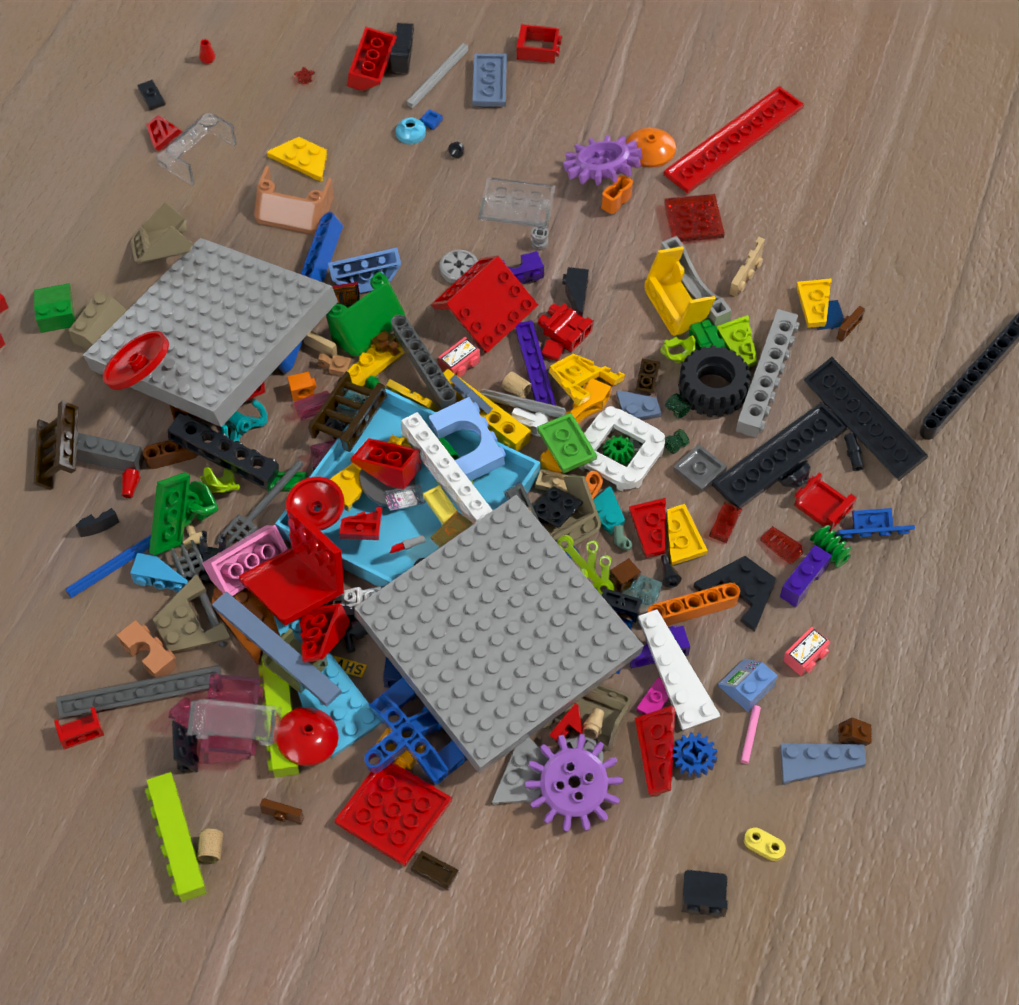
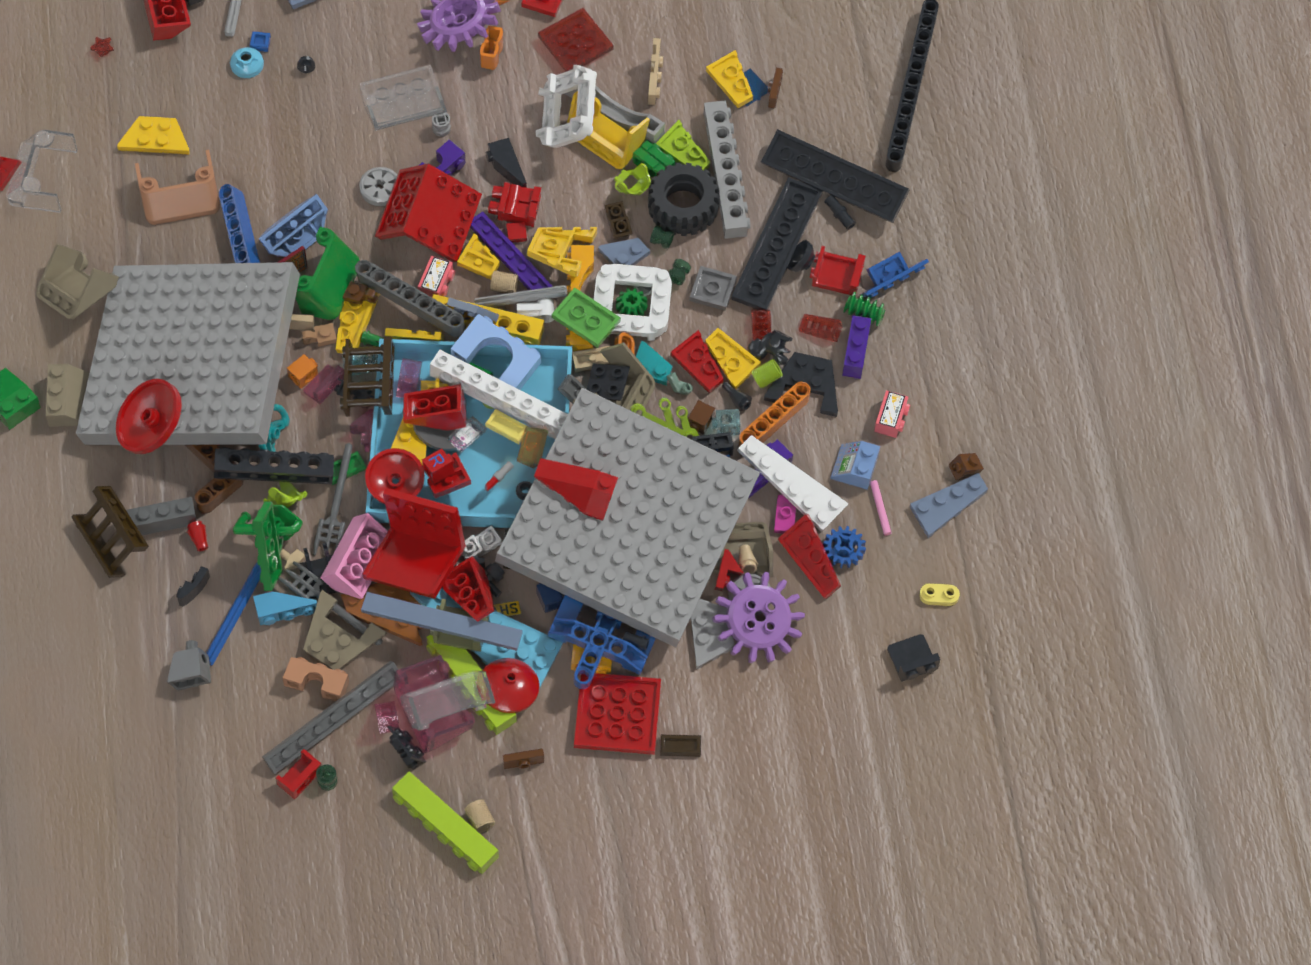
camera: 30 degrees left, 5 degrees up
(47, 589) = (189, 667): none -> dark grey torso
(103, 746) = (324, 781): none -> clear green wheel
(356, 510) = (438, 466): none -> red brick
(384, 426) = (409, 377): none -> clear pink slope
(448, 754) = (638, 641): none -> black pin
(463, 582) = (581, 486): none -> red wedge
(506, 357) = (478, 258): none -> yellow wing
(639, 282) = (580, 126): none -> white plate
(707, 563) = (767, 373): none -> lime piece
(727, 539) = (771, 343): none -> black animal

